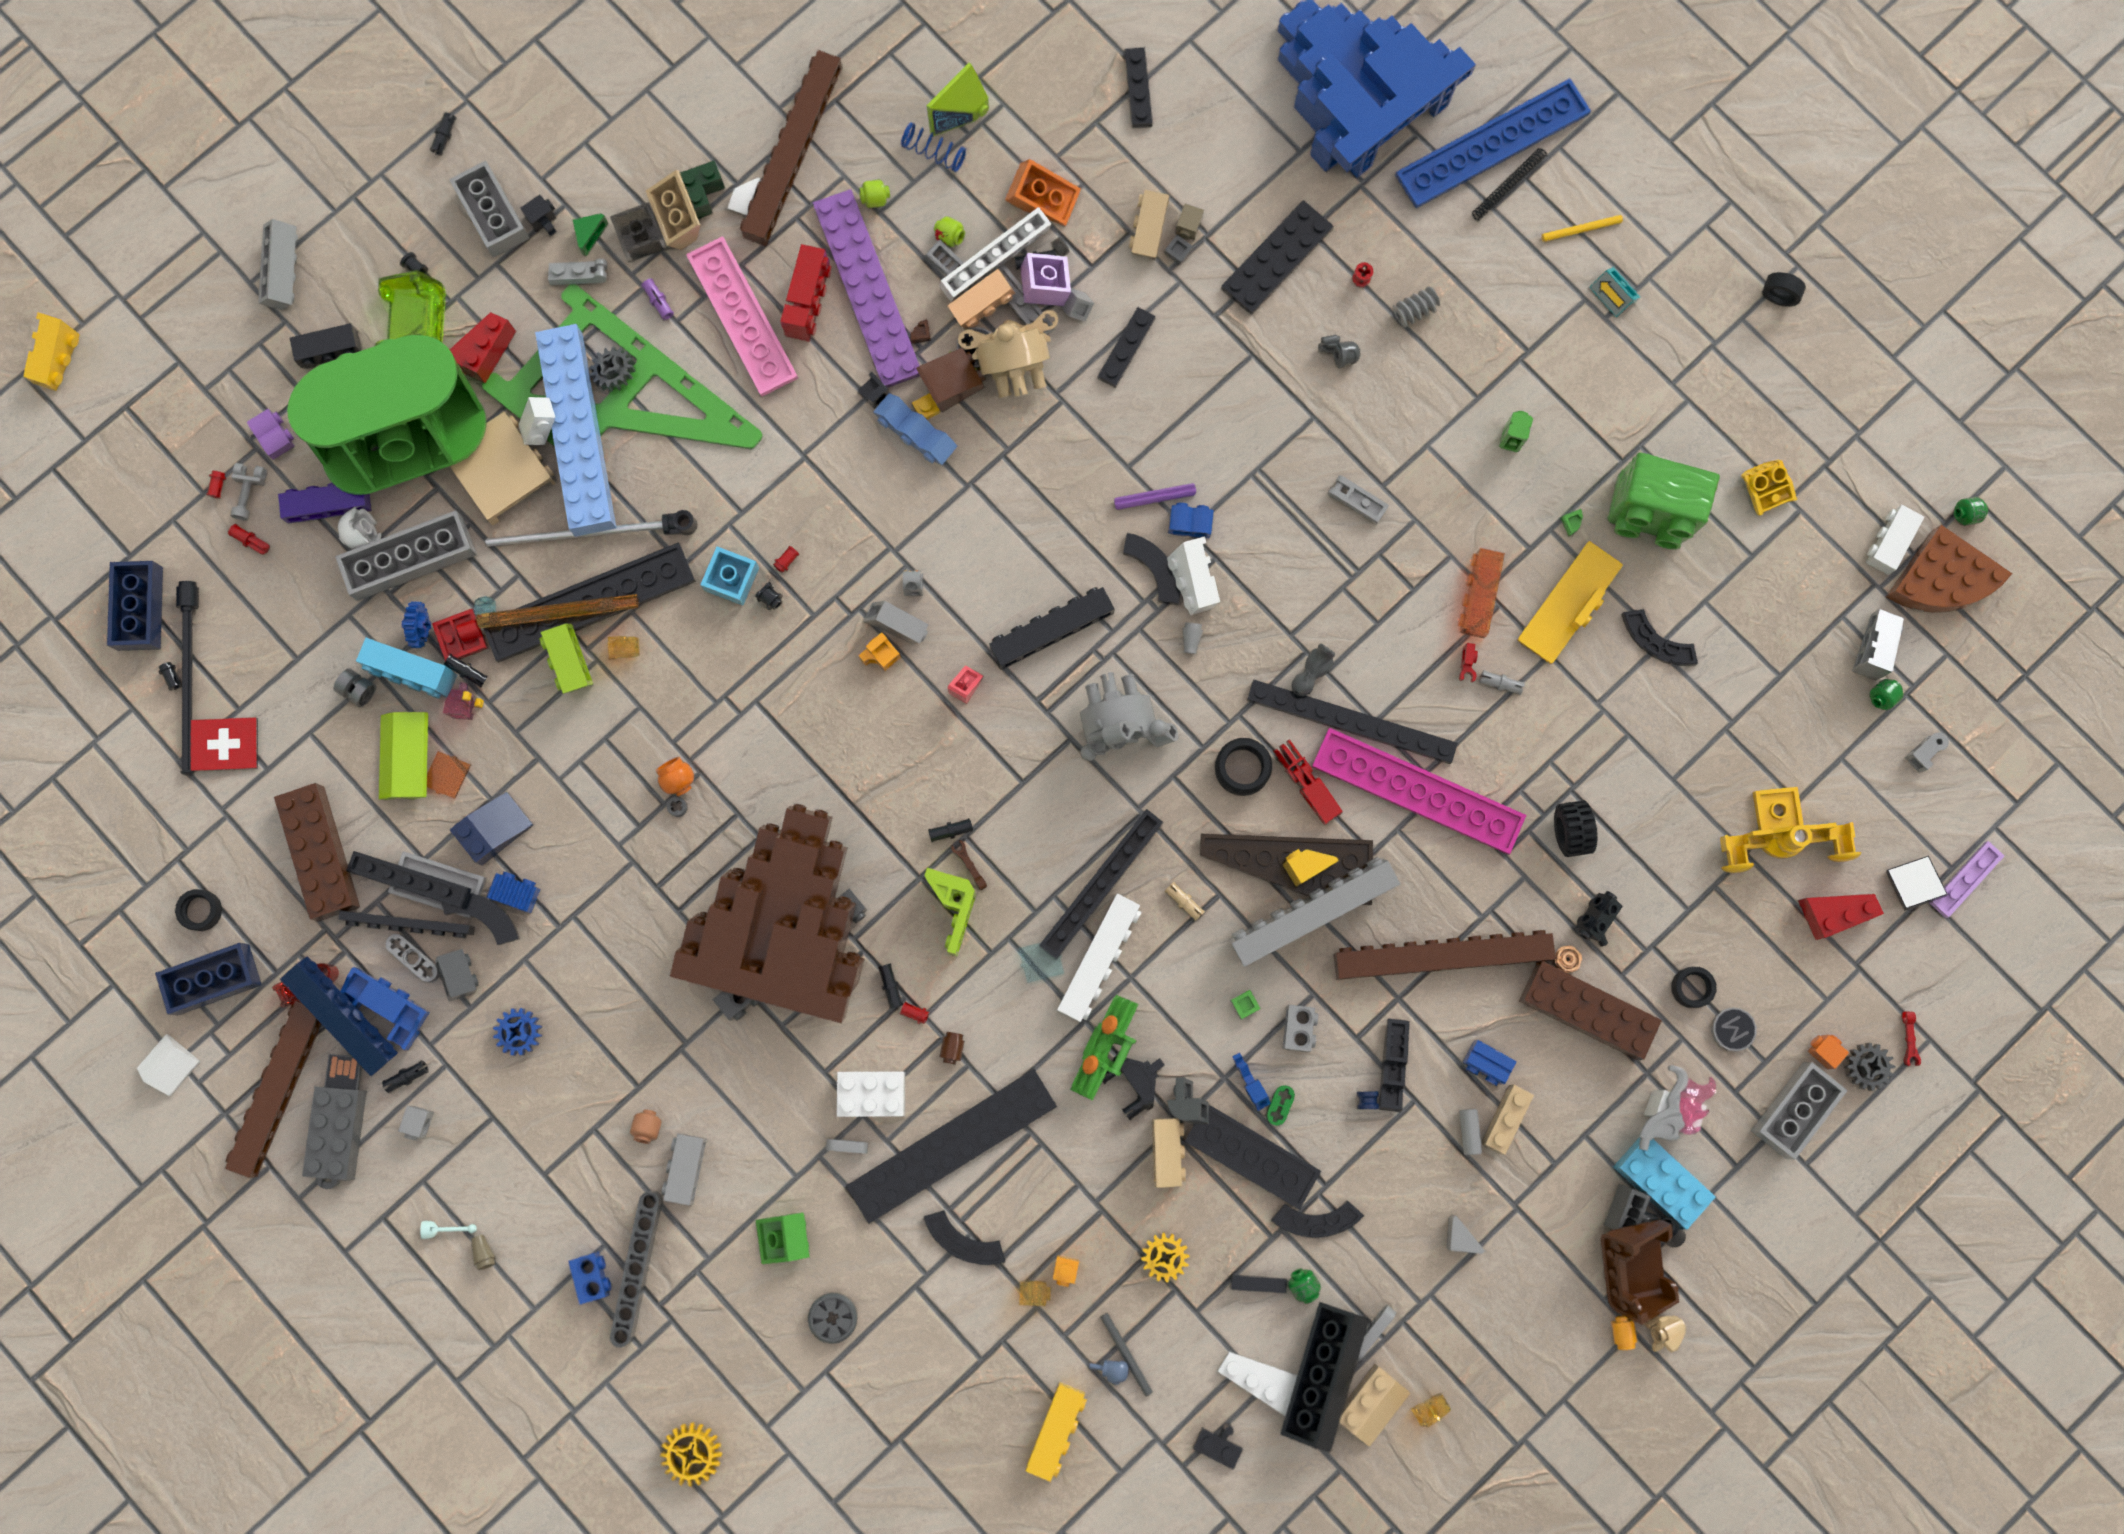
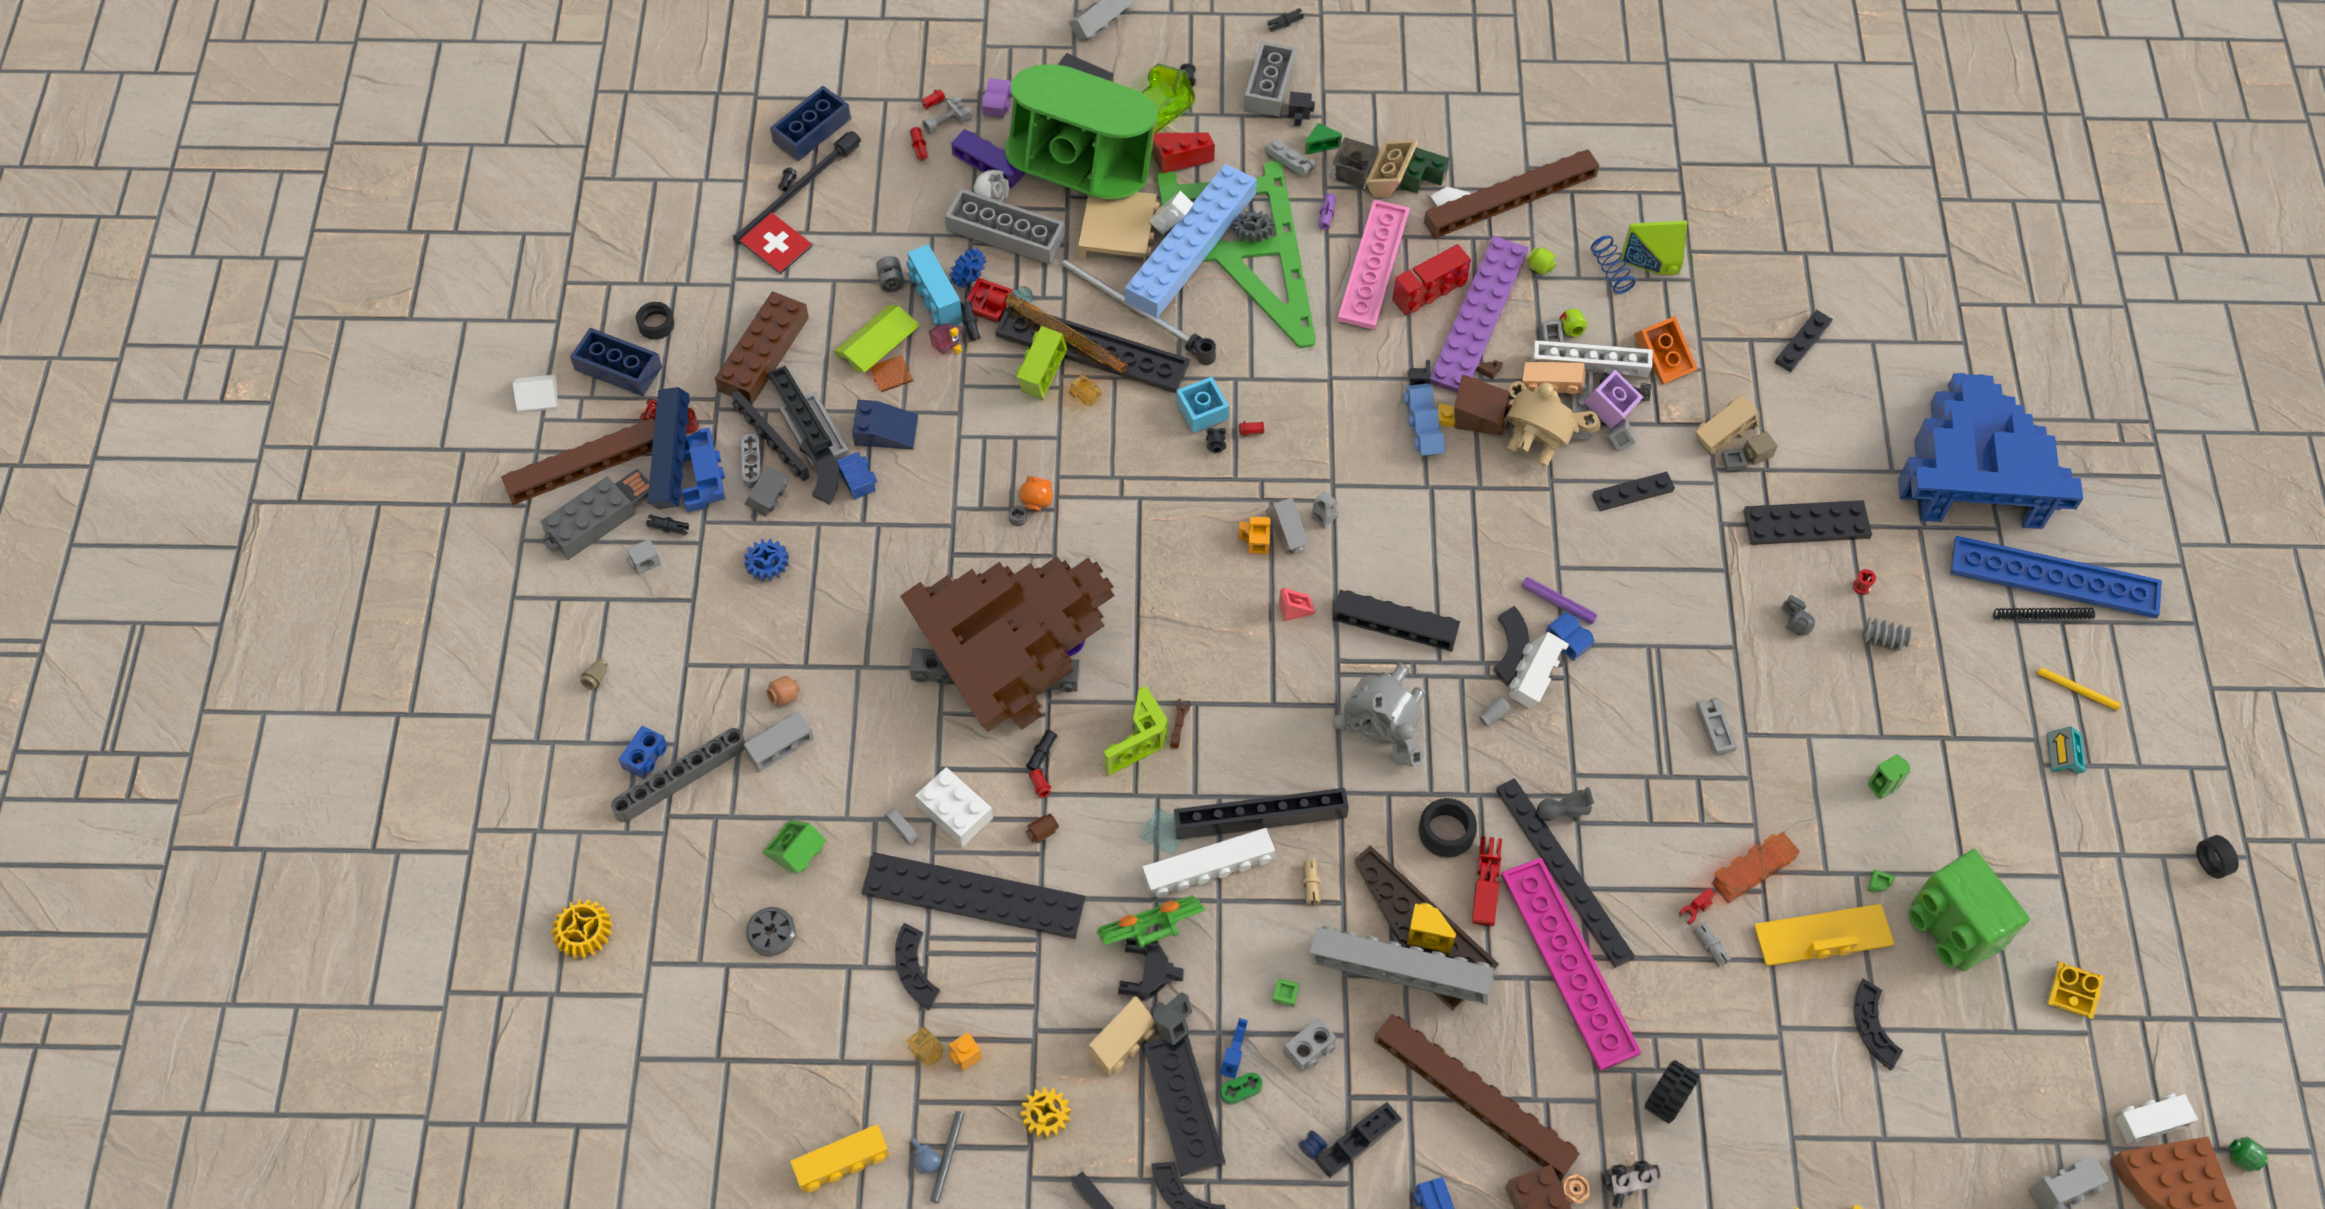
camera: 45 degrees right, 20 degrees down
(429, 1229) = (579, 629): light aqua hinge -> none
(950, 830) = (1189, 688): black pin -> none

